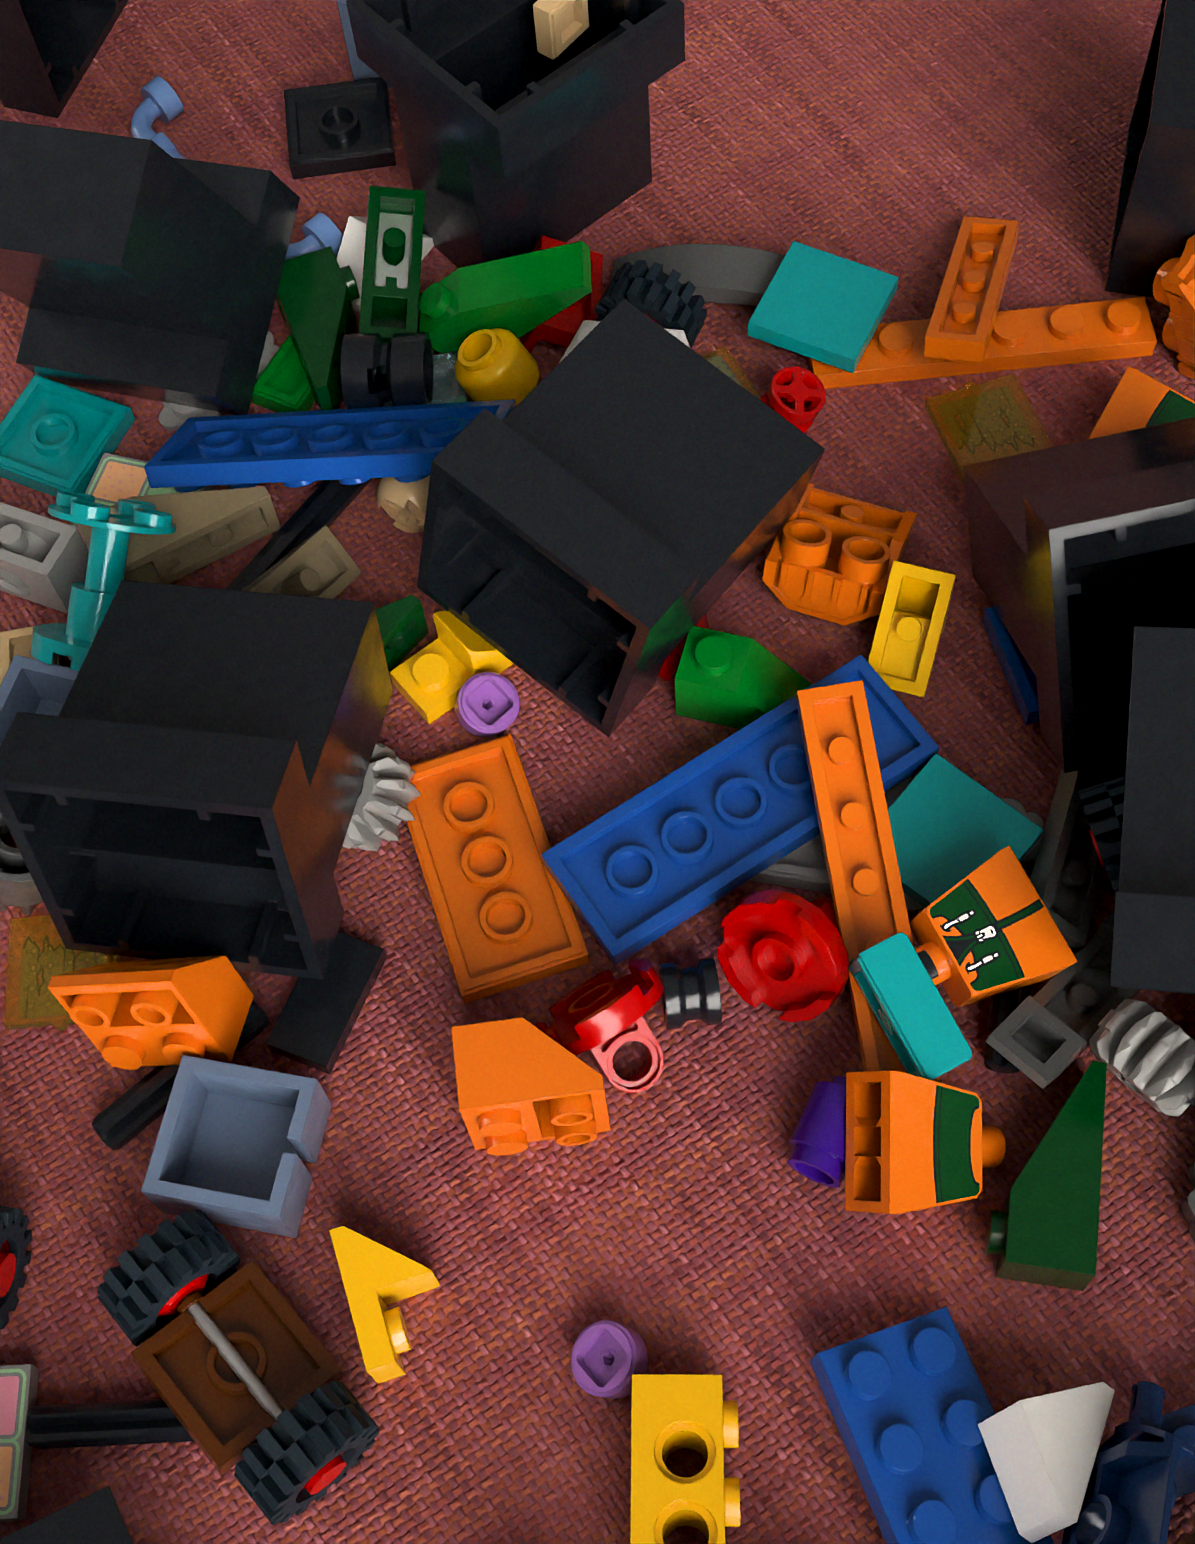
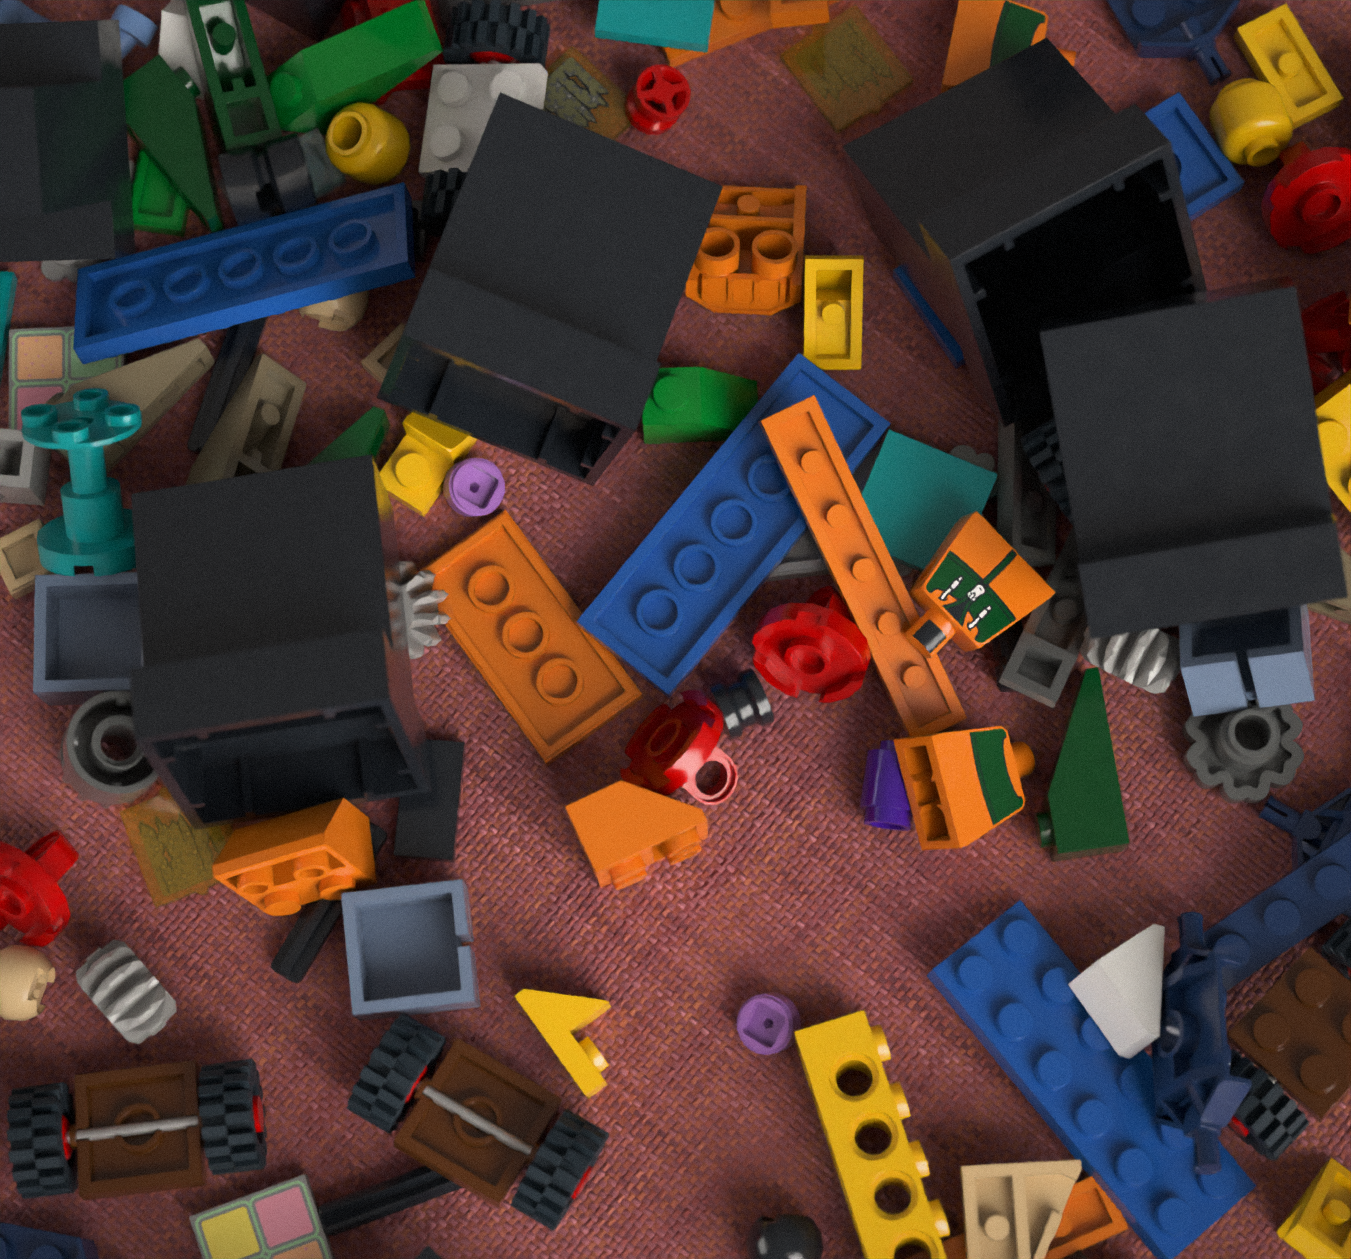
camera: 20 degrees left, 15 degrees up
(909, 1008) = (930, 673): teal slope -> none

